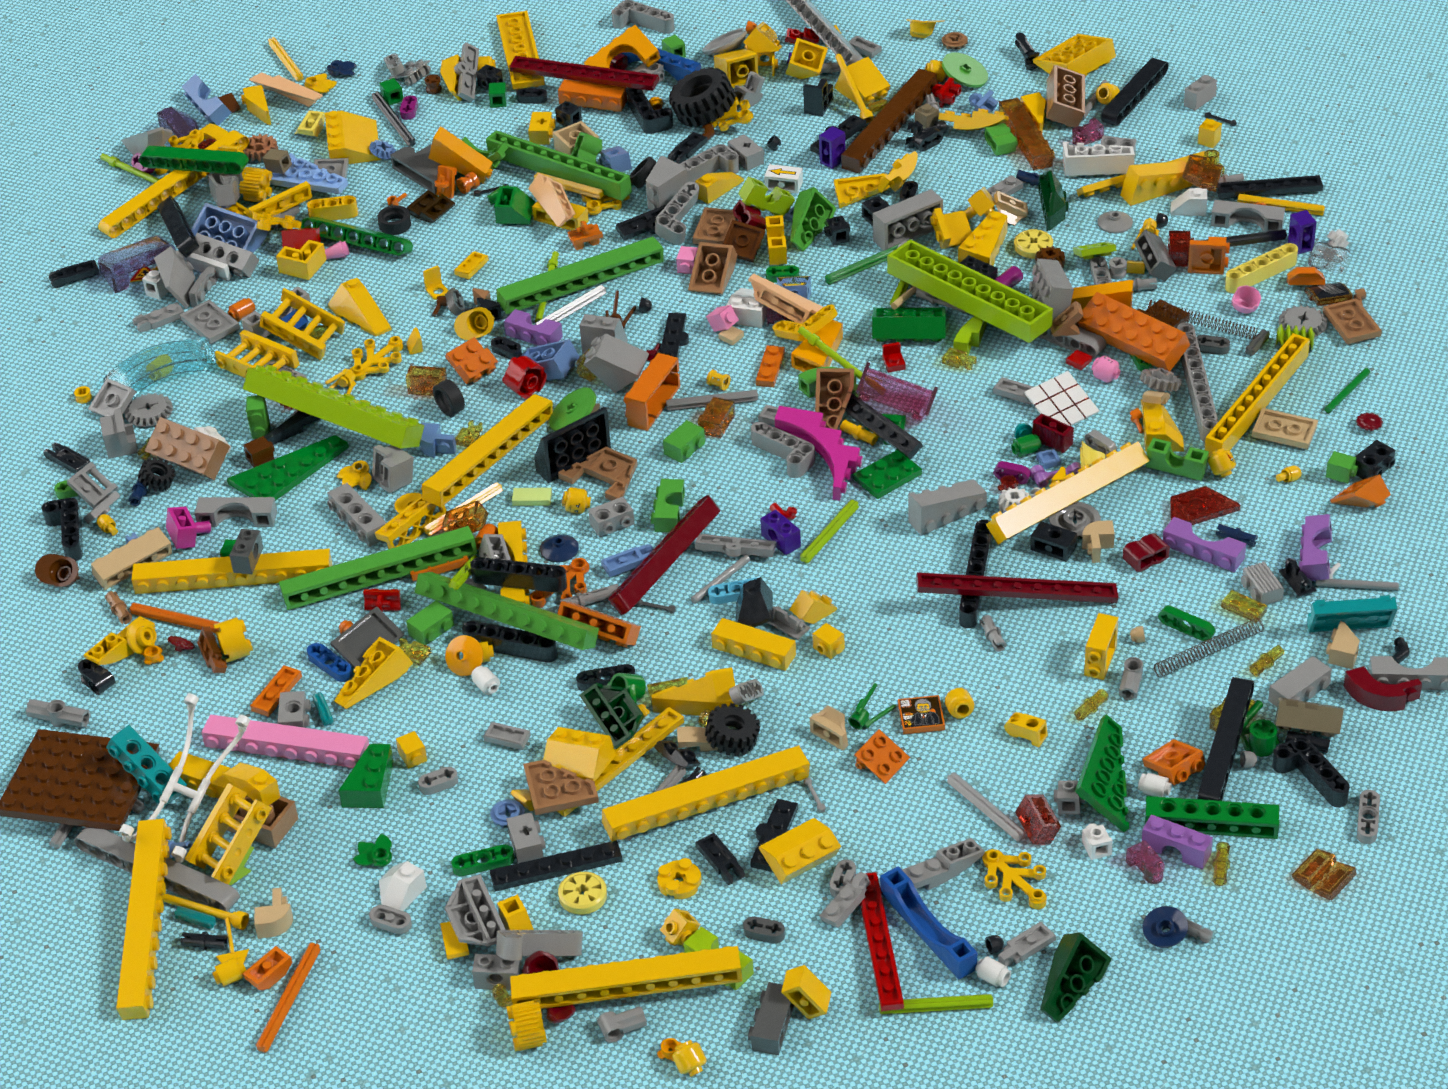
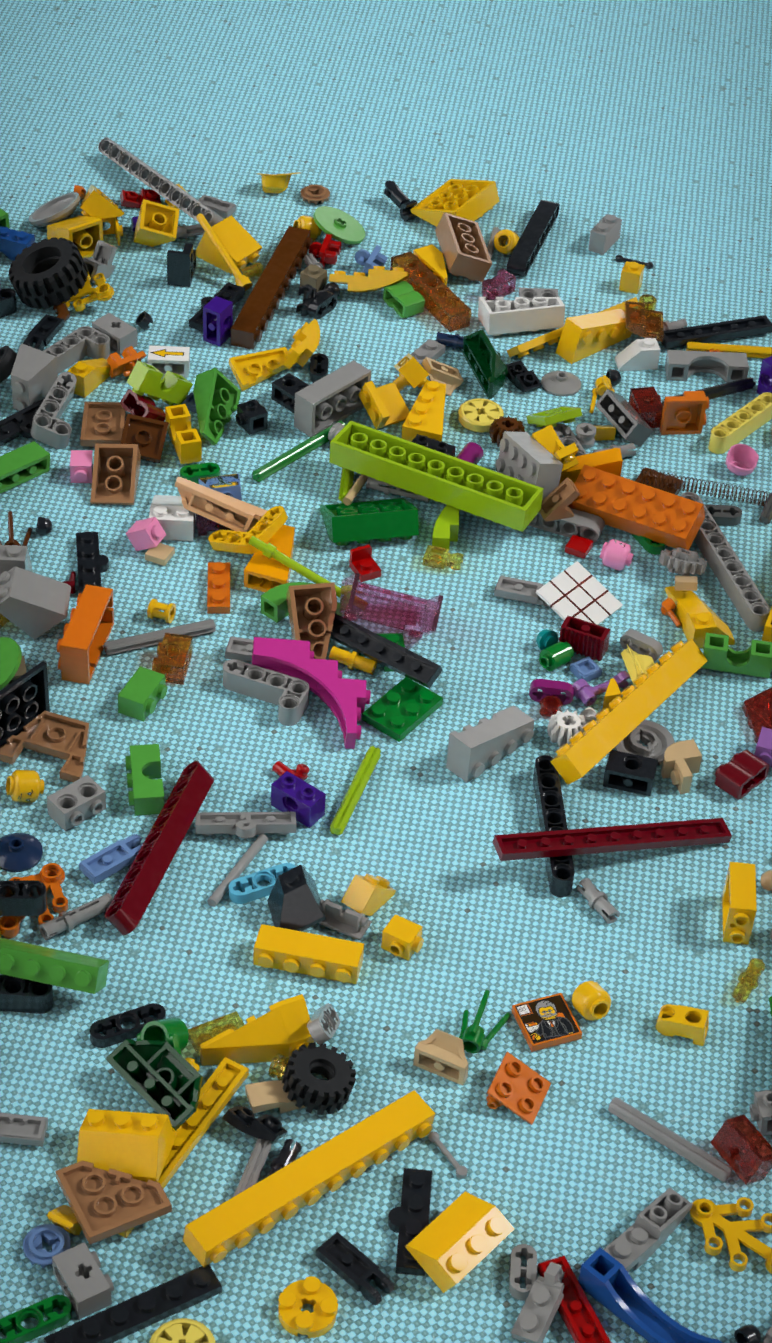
camera: 20 degrees left, 0 degrees up
(609, 627) = (122, 955): orange brick -> none
(671, 609) = (186, 918): dark grey hinge -> none
(740, 177) = (126, 364): none -> orange hips
(1076, 276) = (549, 440): none -> yellow arch
(1081, 214) = (522, 378): none -> black slope

